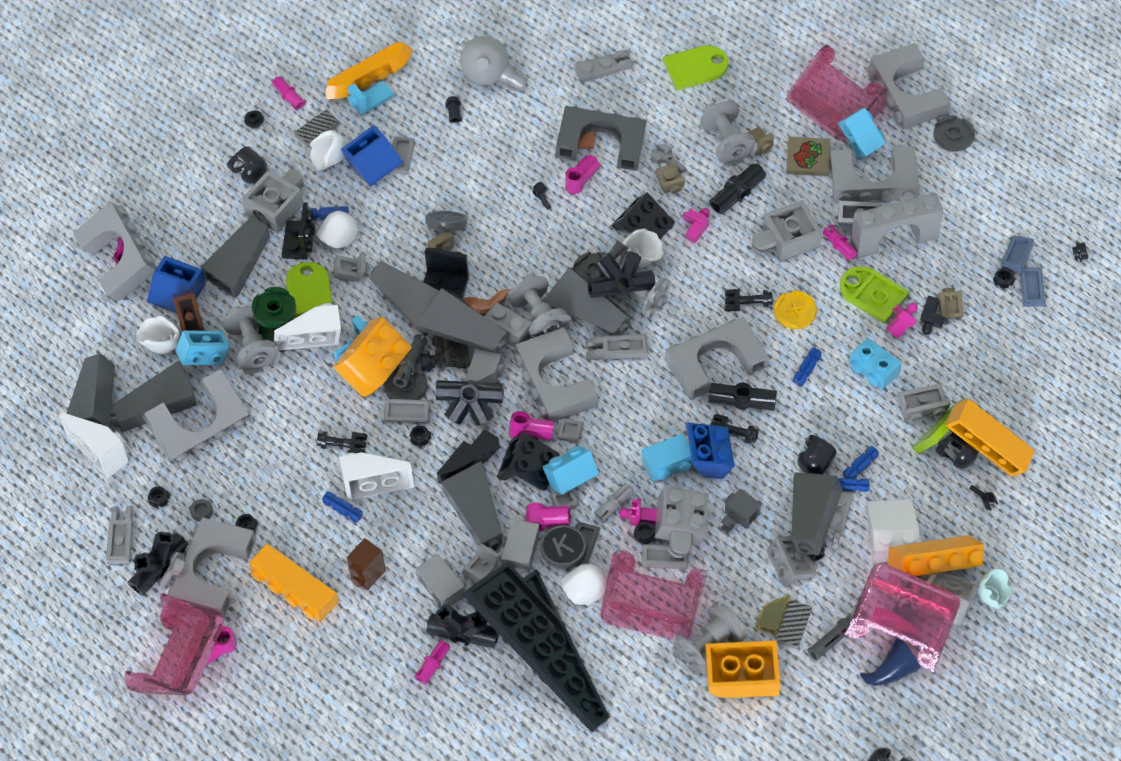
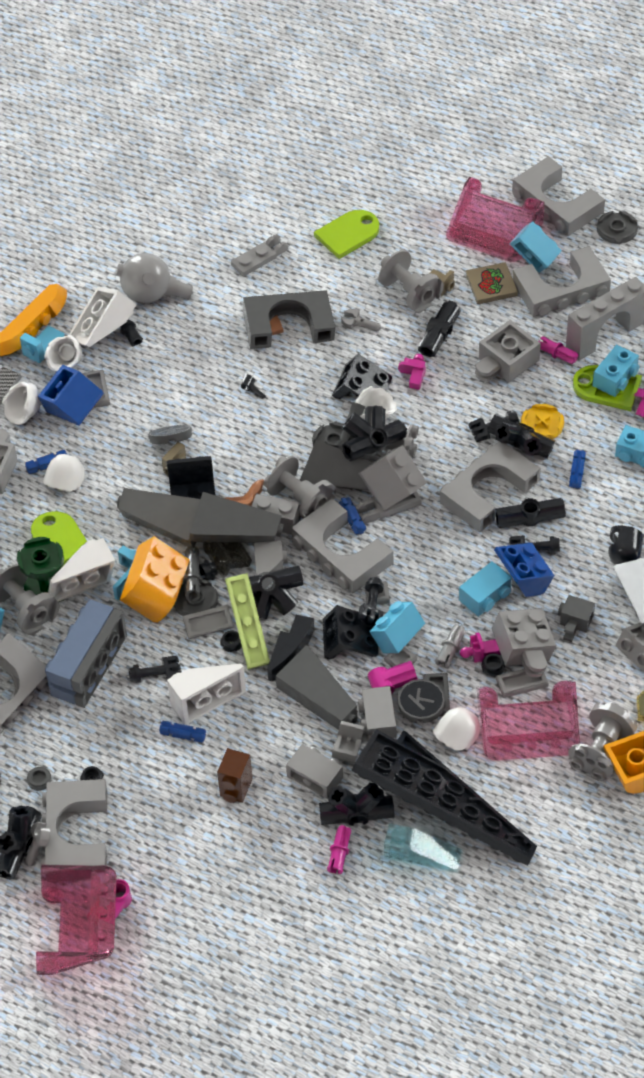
camera: 20 degrees left, 5 degrees down
(284, 407) = (86, 653): none -> piece
(293, 582) = (166, 818): light orange brick -> none
(298, 235) = (26, 492): black bracket -> none
(350, 268) = (92, 506): light grey bracket -> none
(380, 110) = (63, 350): none -> white hair
(430, 87) = (102, 315): none -> white slope
(437, 422) = (247, 621): none -> yellowish green tile
(503, 685) = (419, 848): none -> clear light blue slope
(536, 428) = (329, 597): dark pink piece -> none
(566, 424) = (369, 611): none -> black hinge
(577, 176) = (282, 357): dark pink piece -> none
(579, 348) = (354, 518): none -> blue axle
(623, 325) = (392, 477): none -> light grey slope
(670, 178) = (371, 338): dark tan bracket -> none
(765, 318) = (520, 436): none -> black piece
(848, 208) = (556, 319): light grey brick -> none
(883, 280) = (616, 370): none -> medium azure brick

